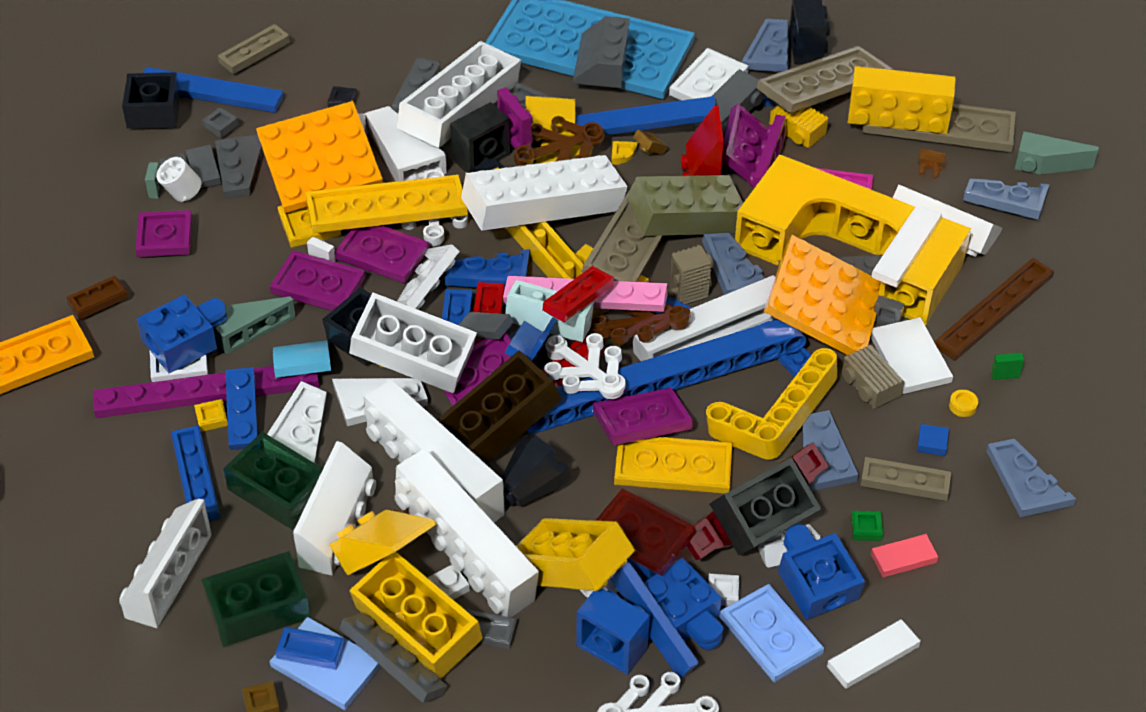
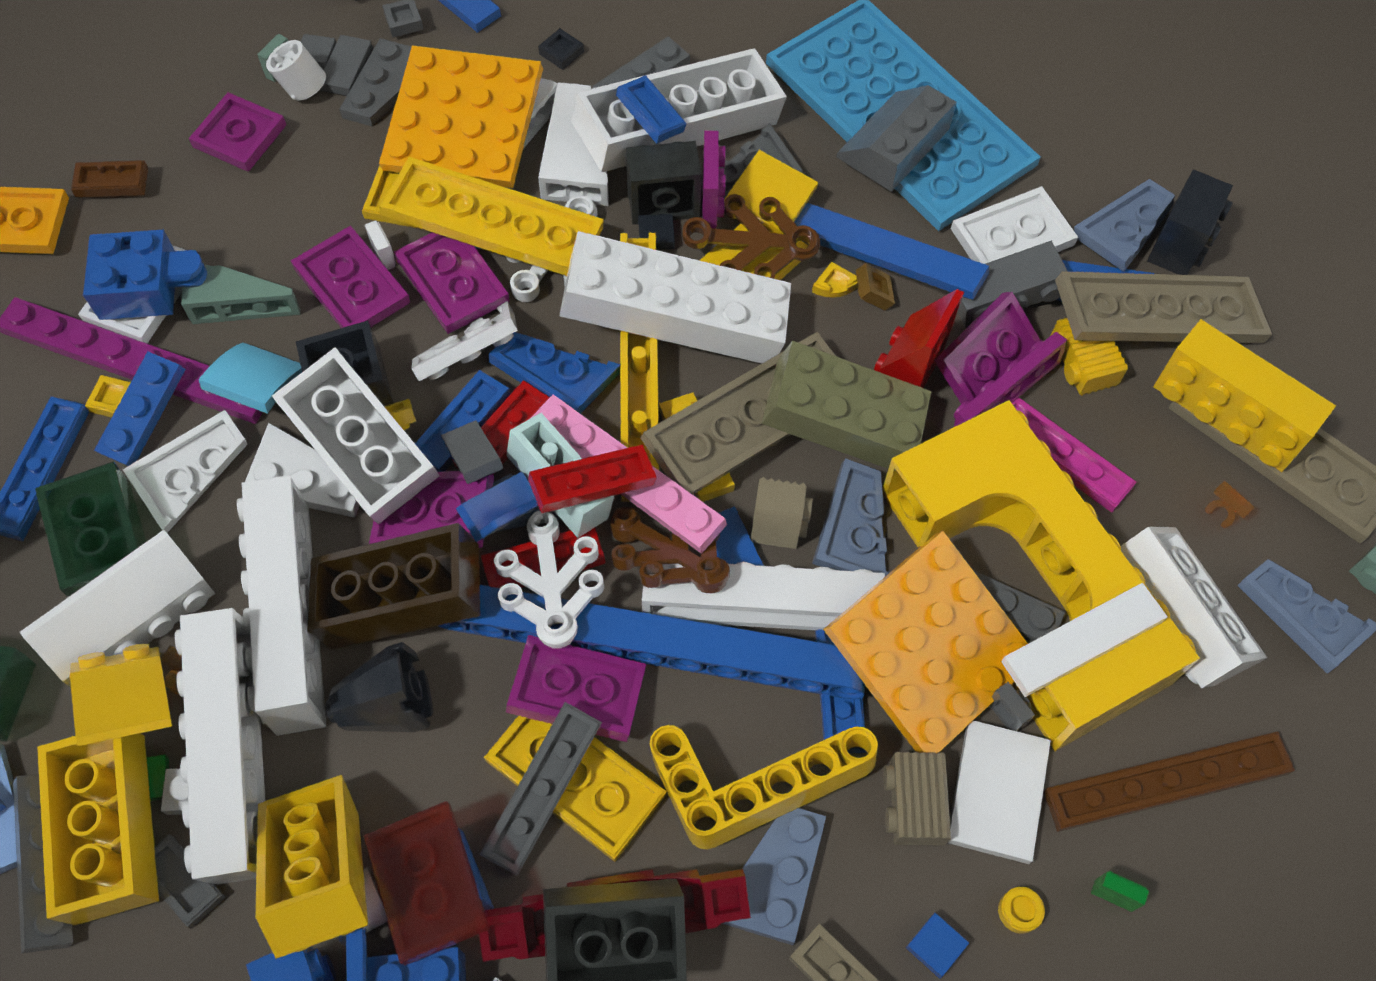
camera: 30 degrees right, 15 degrees up
(451, 94) = (651, 109): none -> blue tile
(663, 463) = (540, 788): none -> dark grey tile

